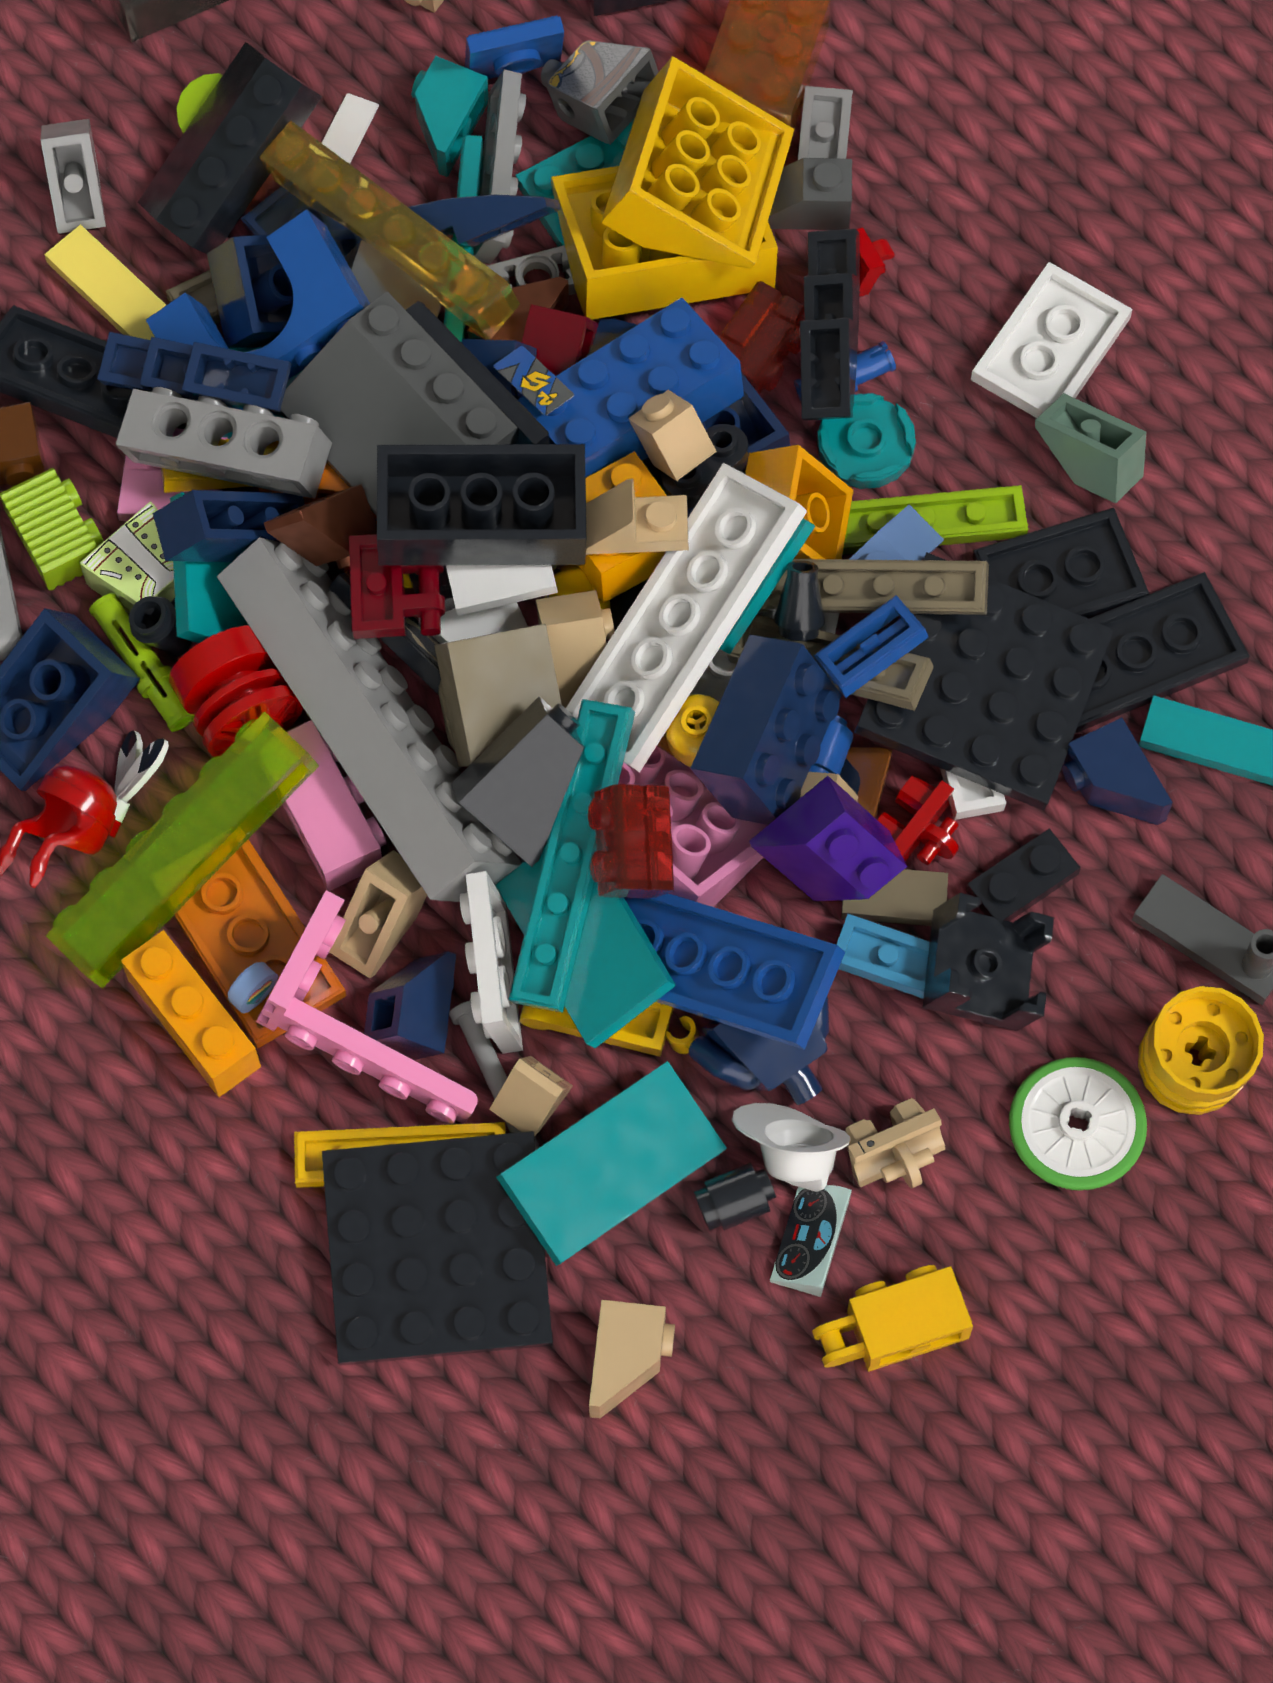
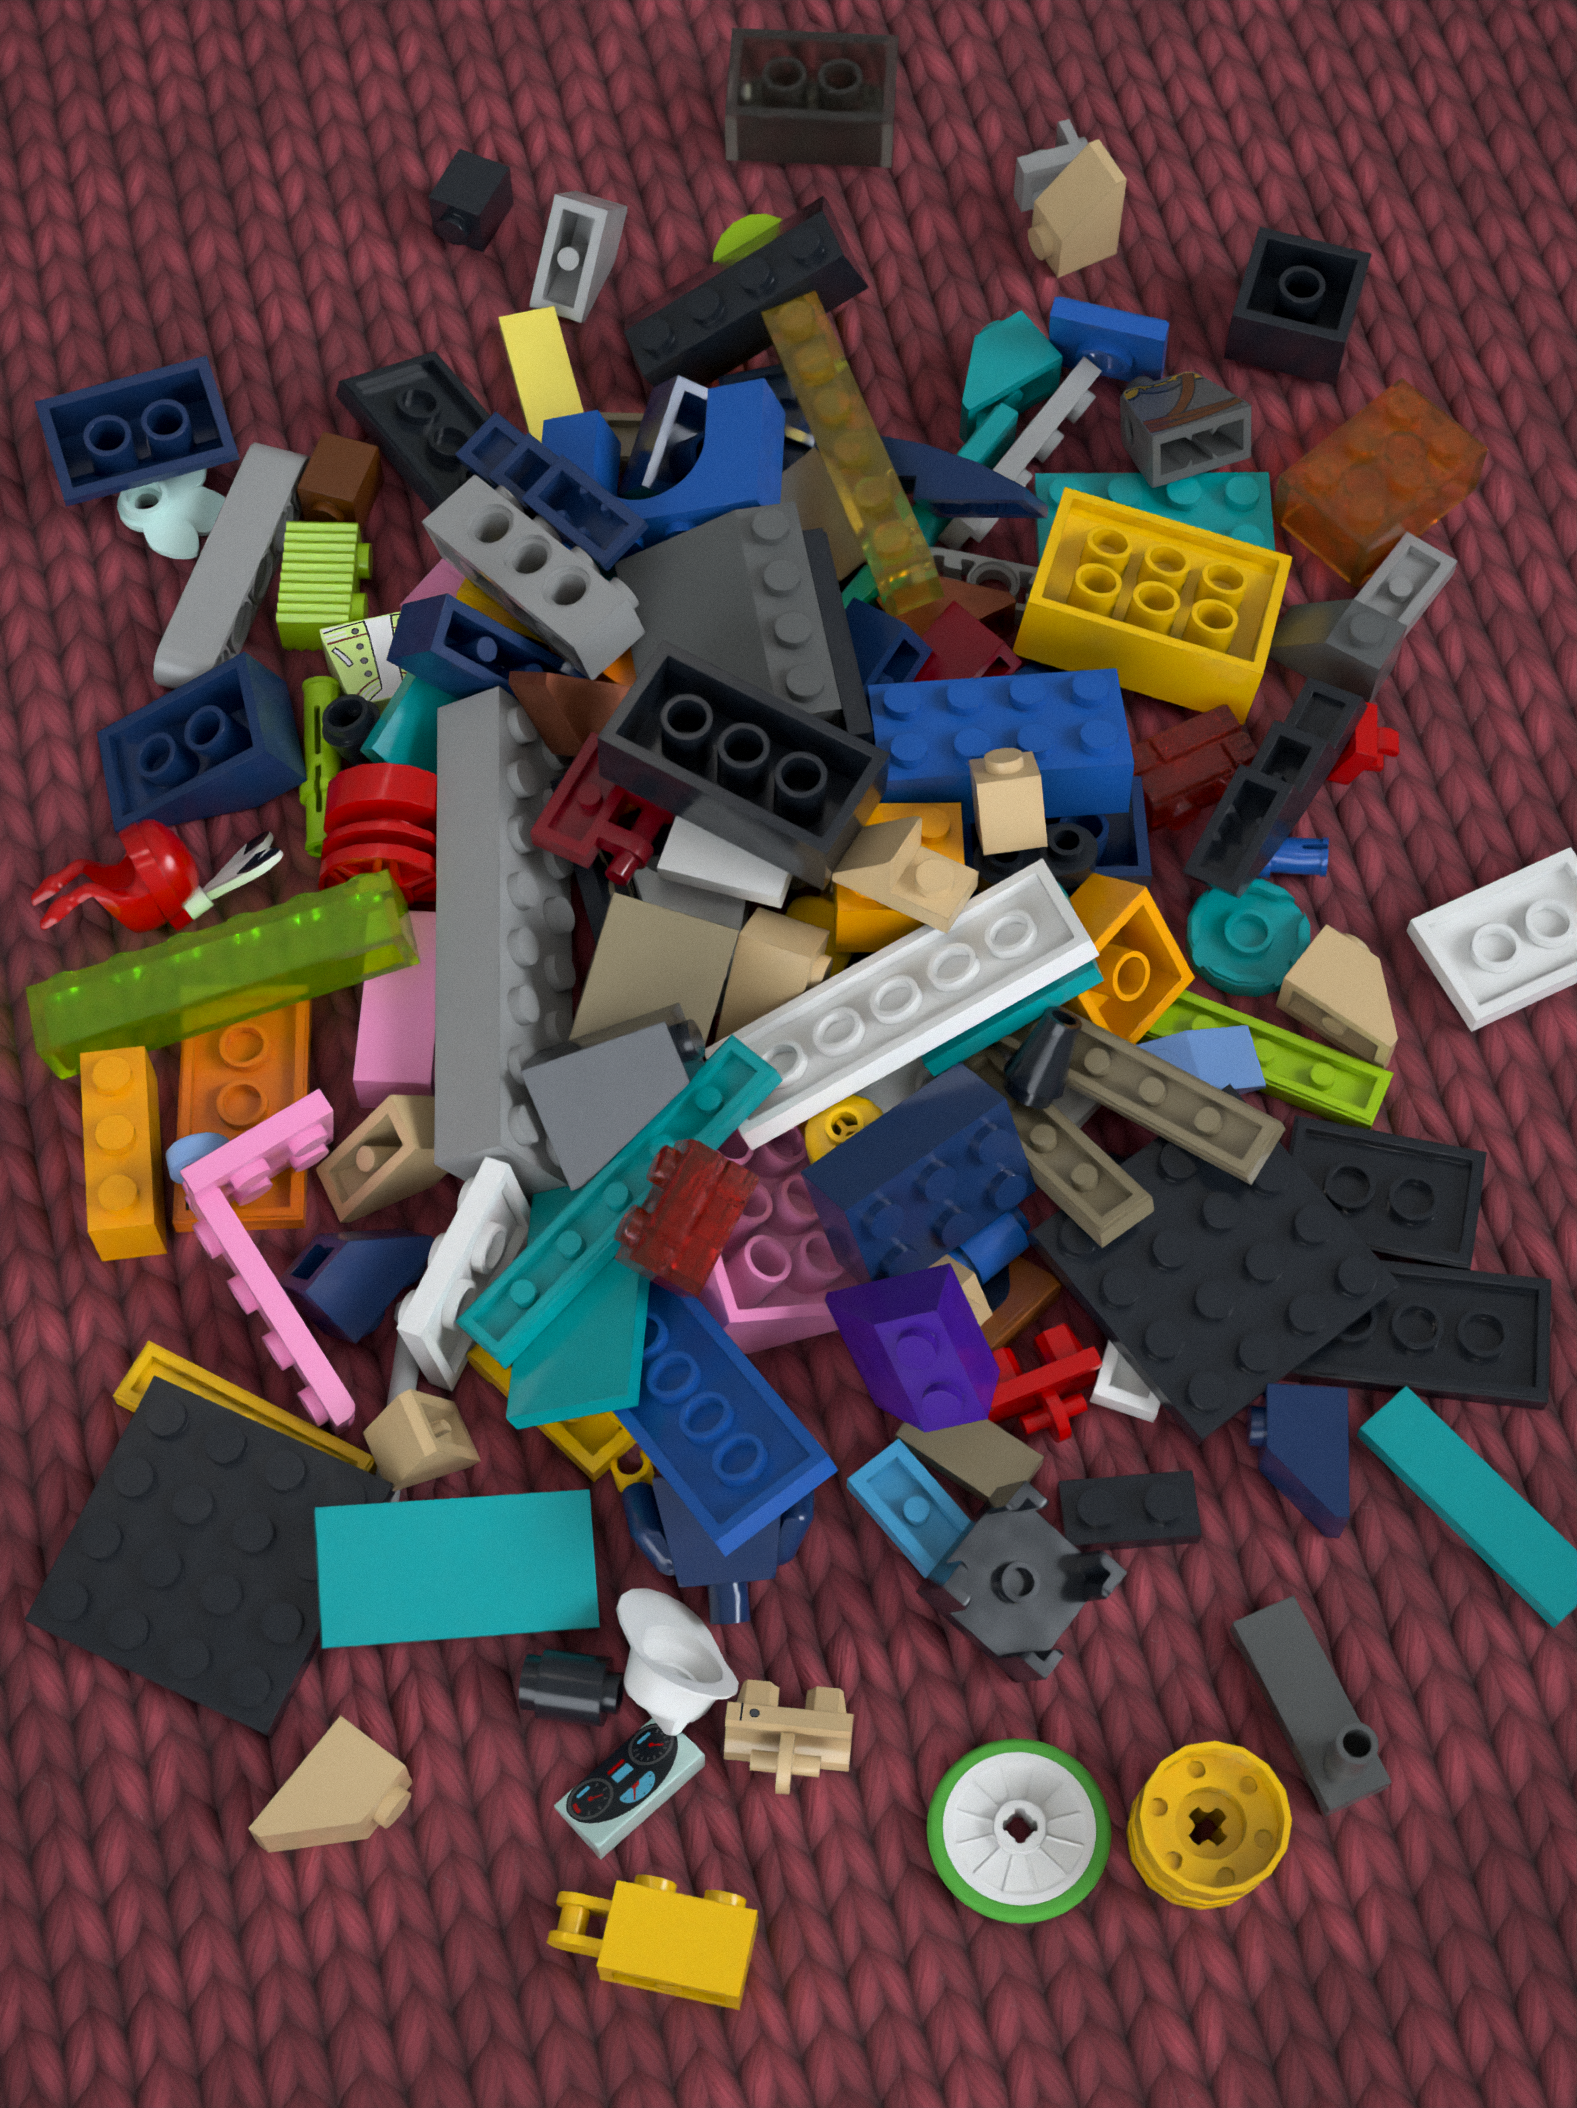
camera: 30 degrees right, 5 degrees down
(349, 126) = (890, 349): white sticker -> none
(533, 380) = (895, 672): sticker -> none
(698, 170) = (1225, 554): yellow slope -> none
(874, 653) = (1094, 1157): blue tile -> none
(959, 450) = (1342, 996): none -> tan slope
(1094, 447) = (1500, 1072): sand green slope -> none

